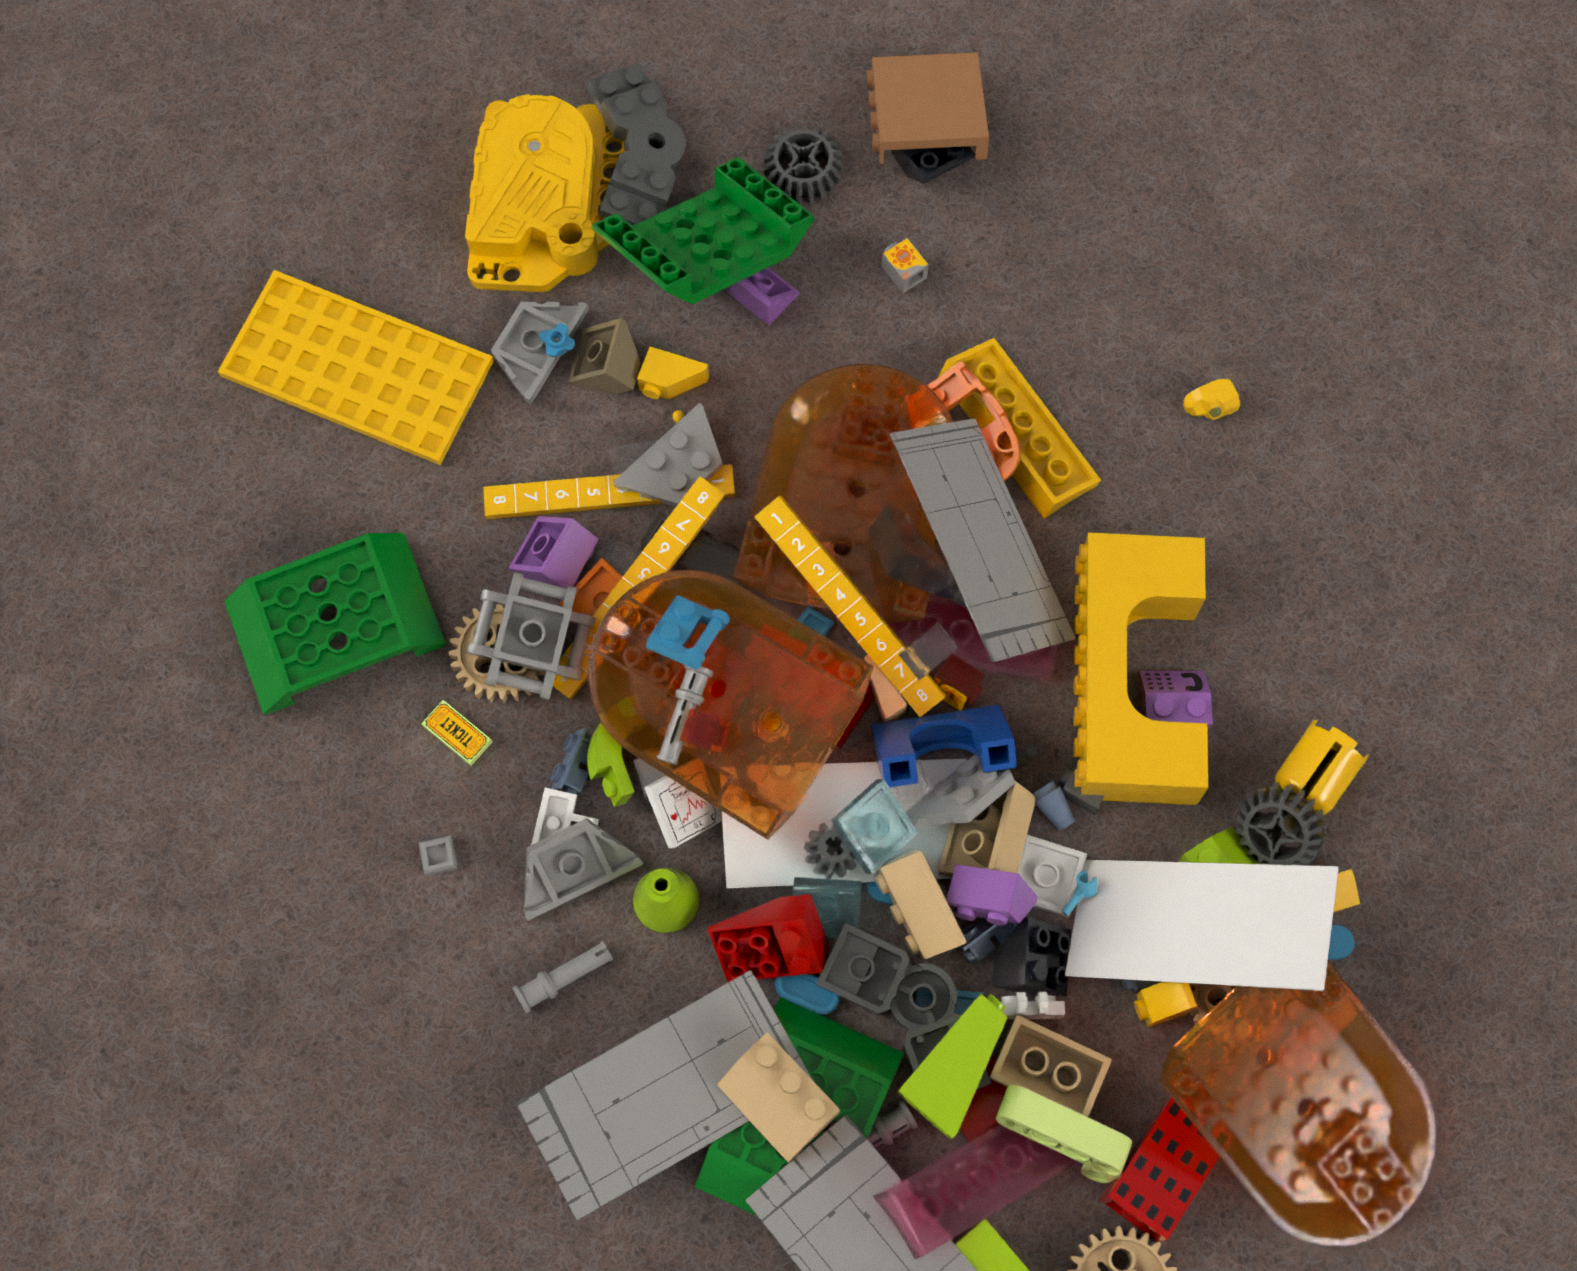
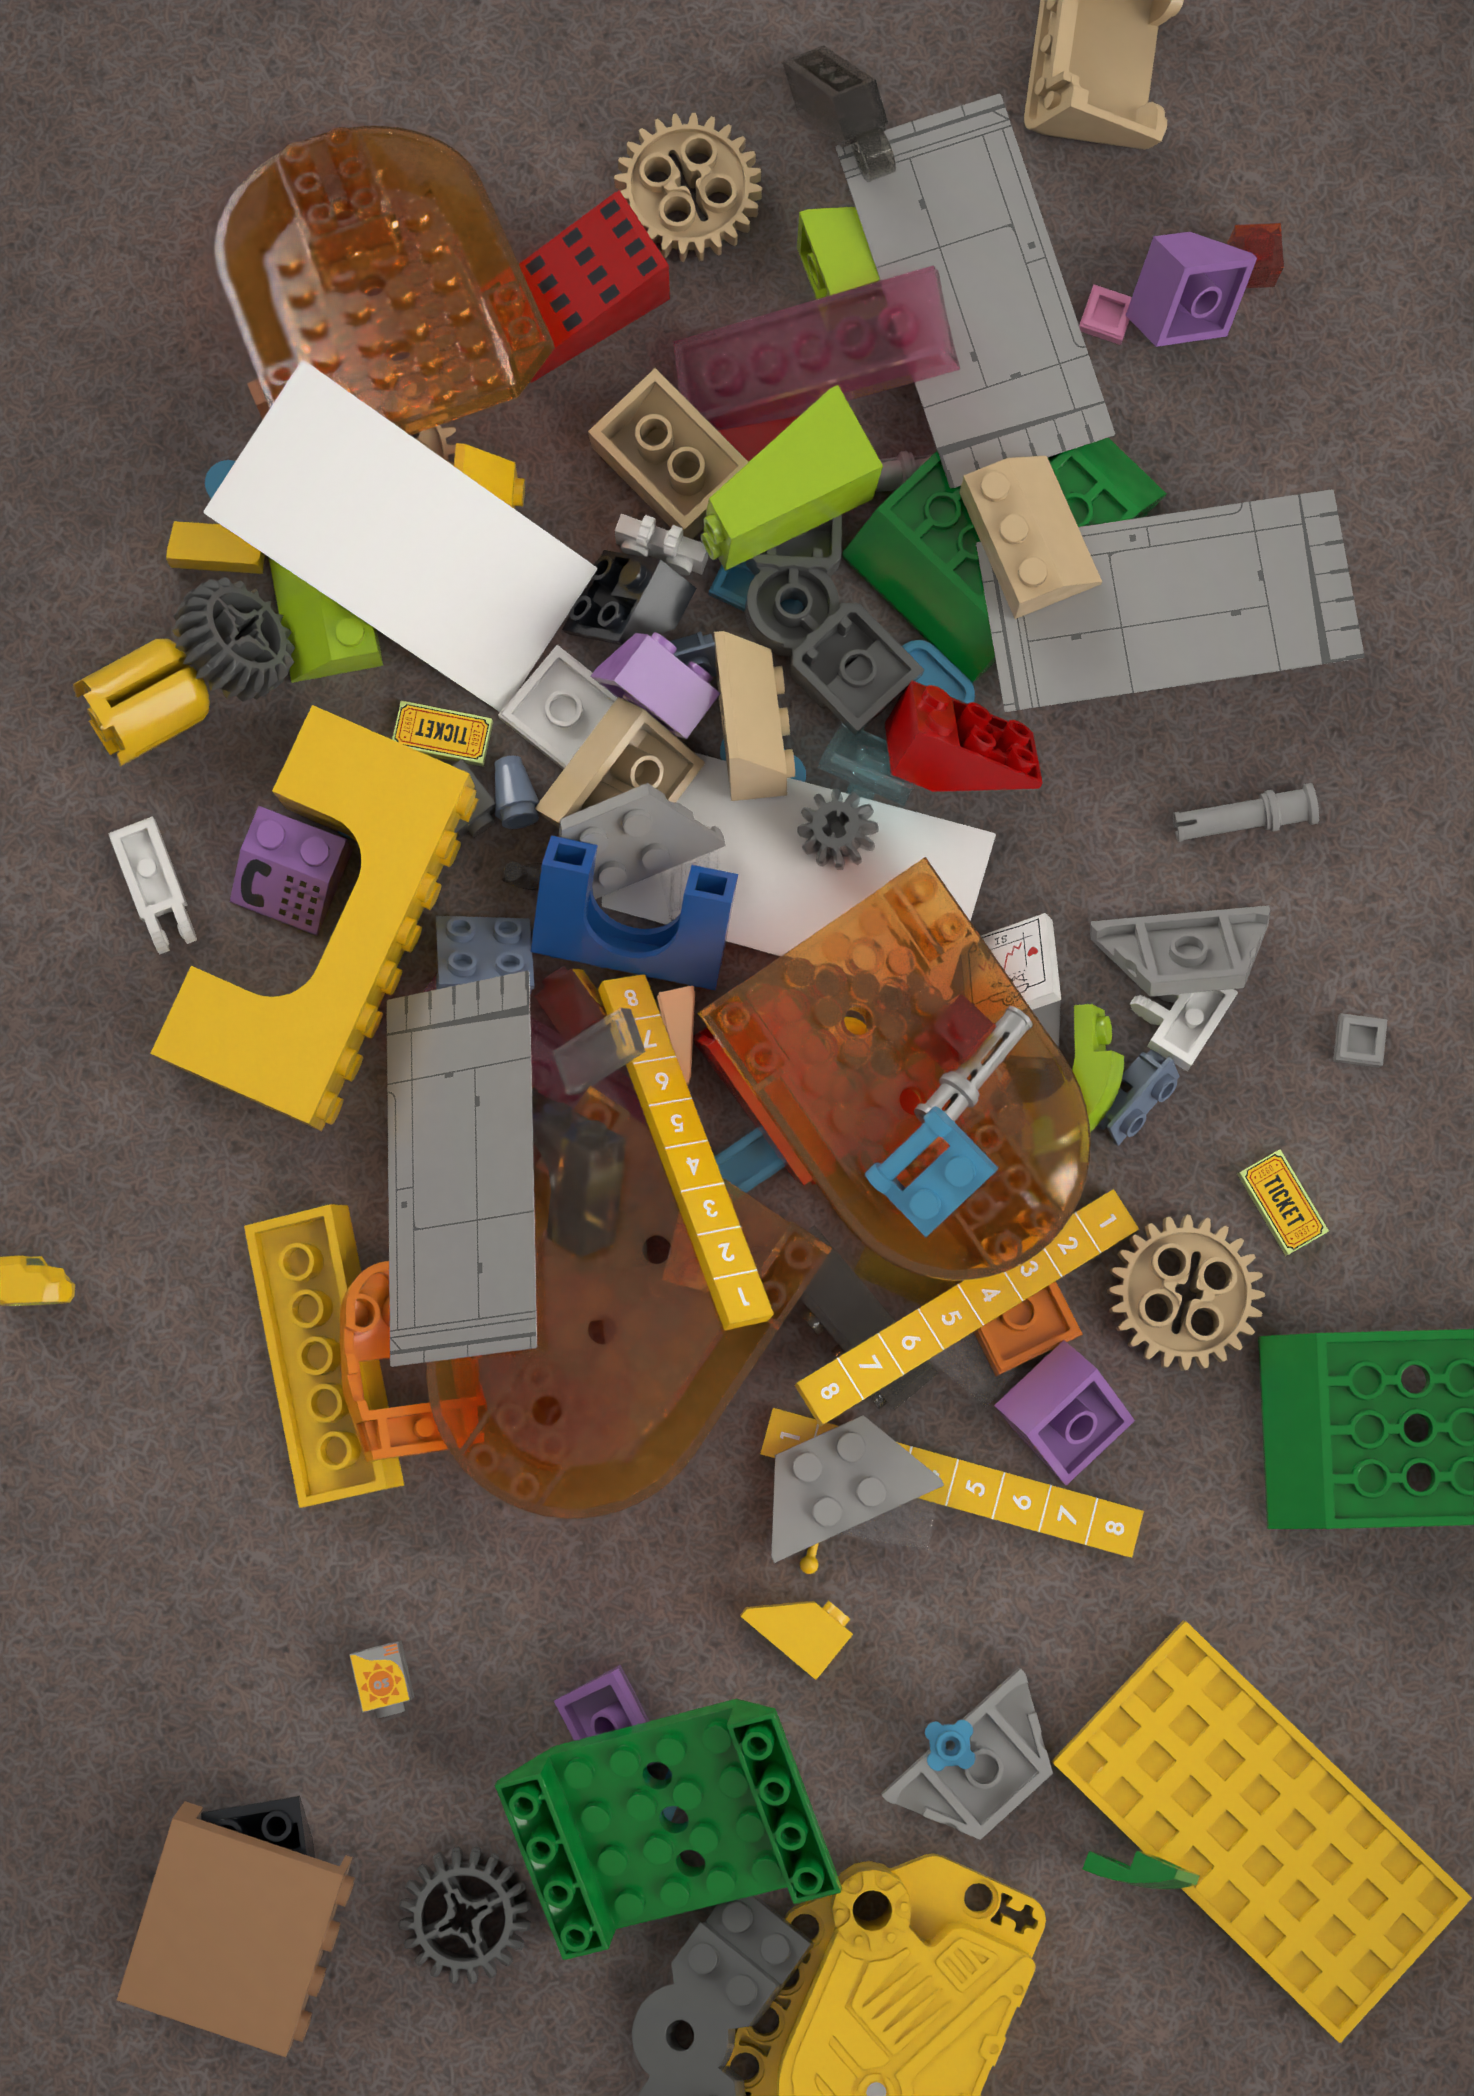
camera: 165 degrees left, 10 degrees up
(415, 311) = (1145, 1871): none -> green slope
(531, 635) = (1141, 1282): light grey brick -> none
(606, 358) = (885, 1694): dark tan slope -> none
(666, 900) = (1075, 866): lime cone -> none
(874, 826) = (772, 829): clear light blue tile -> none
(1028, 691) = (481, 949): none -> sand blue hinge
(1067, 1132) = (687, 365): yellowish green beam -> none
(1084, 890) = (531, 663): medium azure hand -> none
(1118, 828) = (443, 733): none -> tile
(1257, 662) = (152, 879): none -> white hinge

